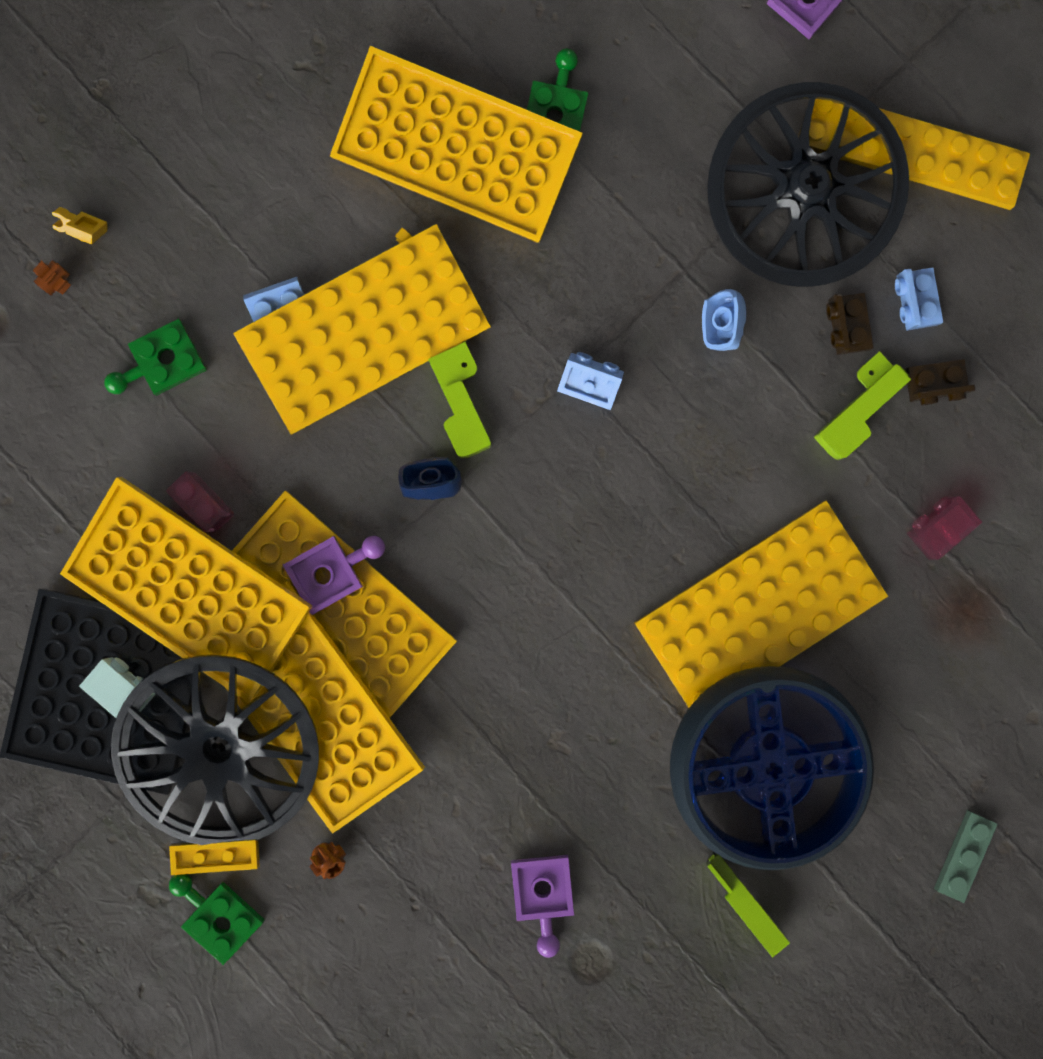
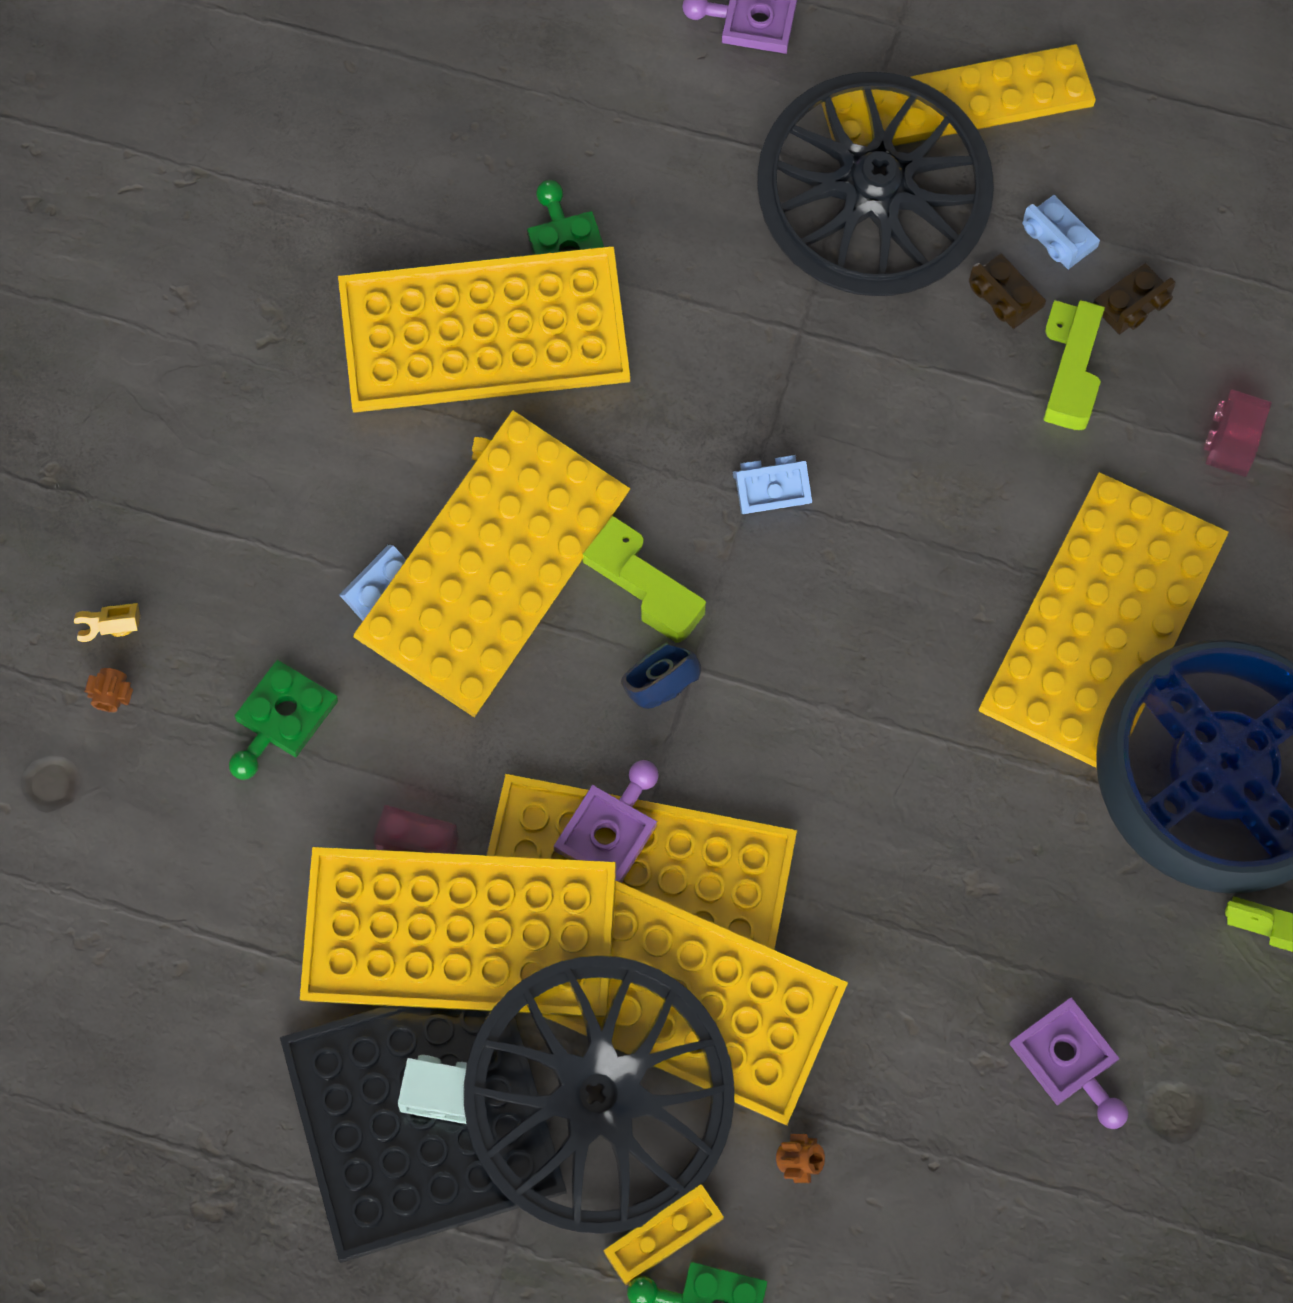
camera: 30 degrees left, 20 degrees down
(723, 320) = (874, 352): light blue piece -> none

